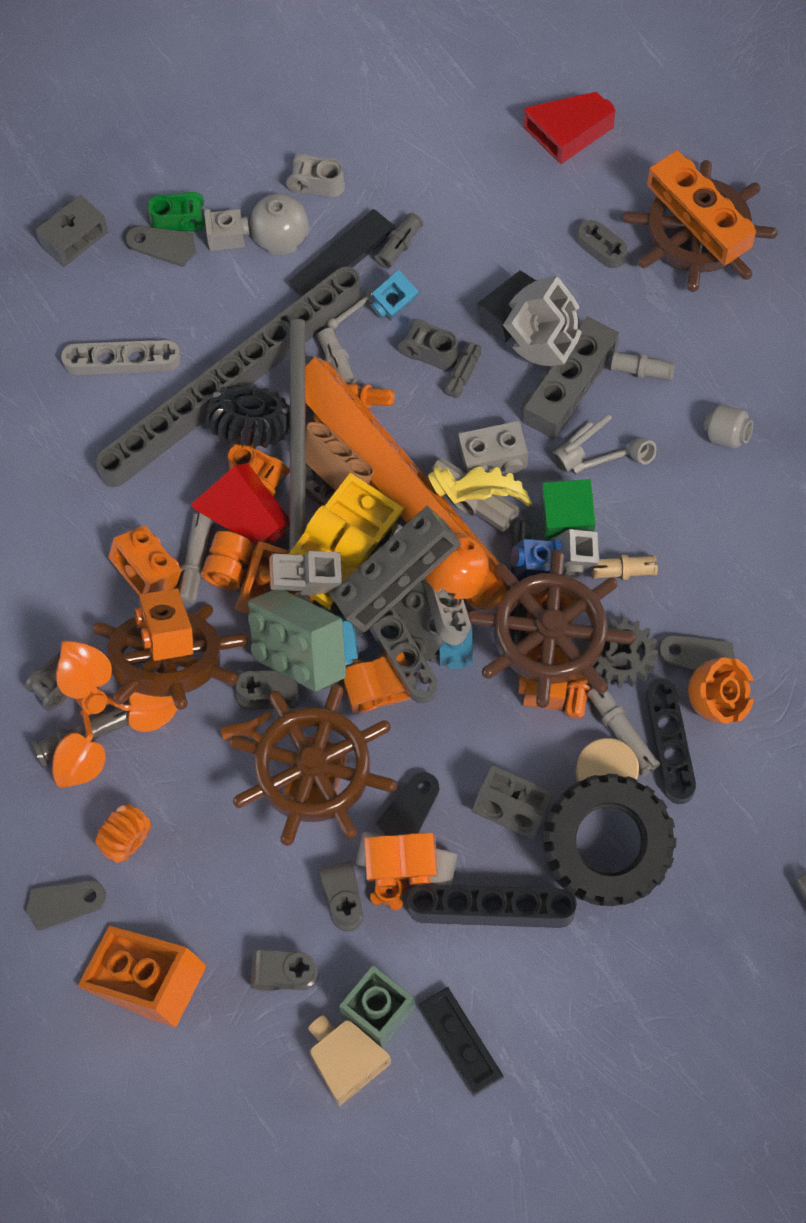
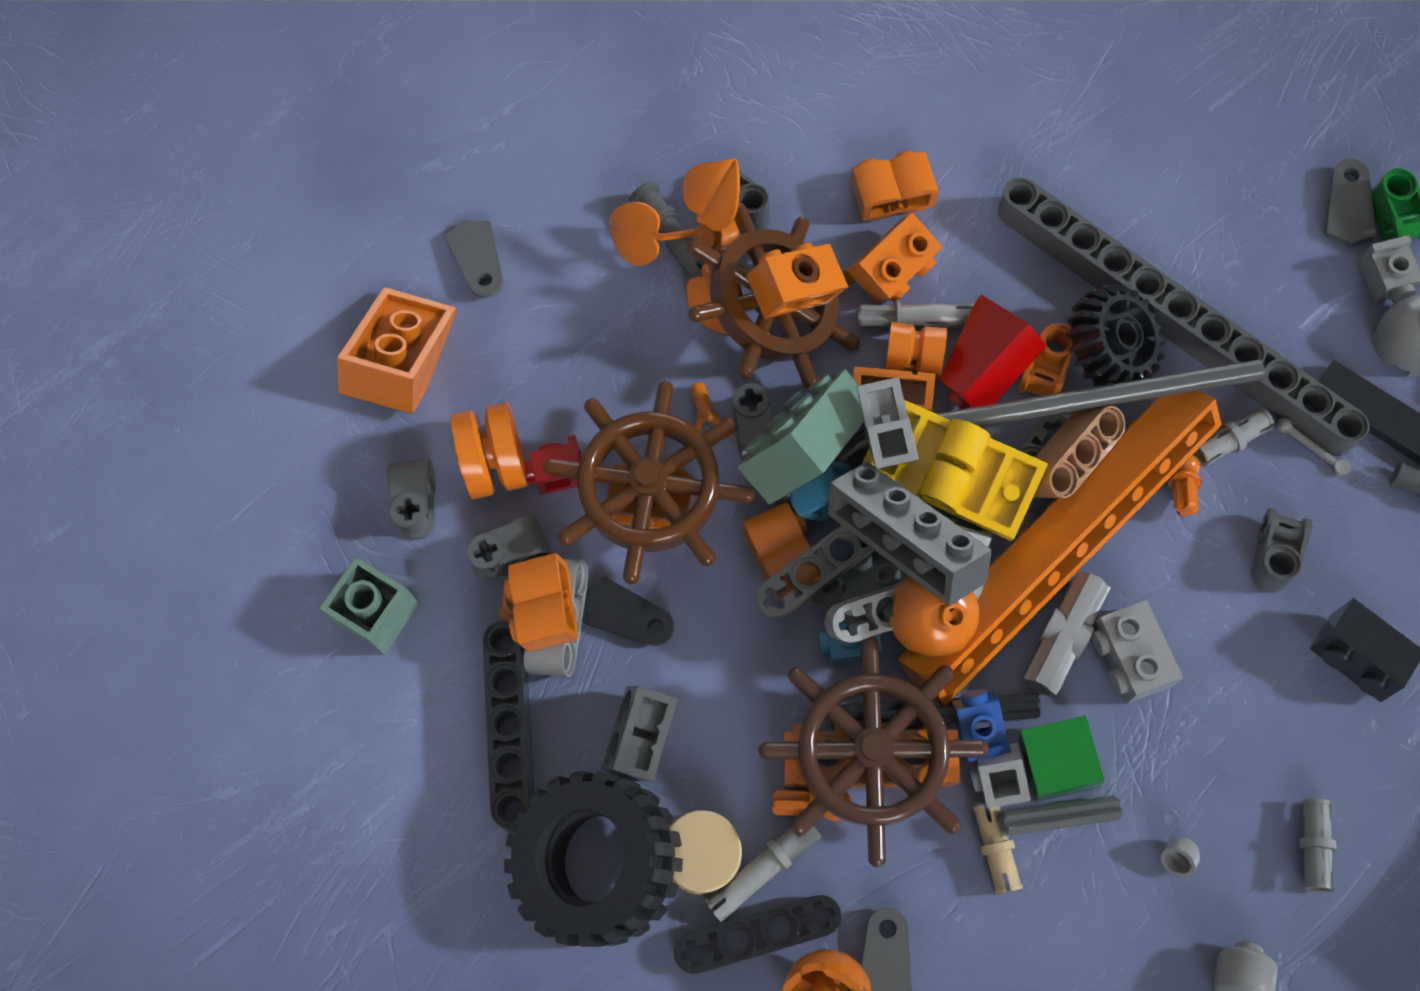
camera: 85 degrees right, 5 degrees up
(71, 230) = (1339, 95): dark grey brick -> none
(75, 557) = (893, 185): none -> orange brick
(121, 353) = (1179, 186): light grey beam -> none
(123, 833) = (553, 295): orange gear -> none
(258, 893) = (483, 451): none -> orange wheel
(275, 855) = (549, 483): none -> red brick
(345, 1057) = (308, 576): tan torso -> none
(397, 286) = (1360, 491): dark azure brick -> none
(461, 1041) = (346, 712): black tile -> none
(462, 370) = (1254, 599): dark grey axle -> none
(477, 485) = (1071, 635): light yellow plant -> none
(544, 322) = (1342, 690): light grey brick -> none
(552, 416) = (1343, 758): dark grey brick -> none
(570, 454) = (1153, 757): light grey plant -> none
(606, 521) = (1059, 815): none -> dark grey axle
(623, 666) = (887, 873): dark grey gear -> none

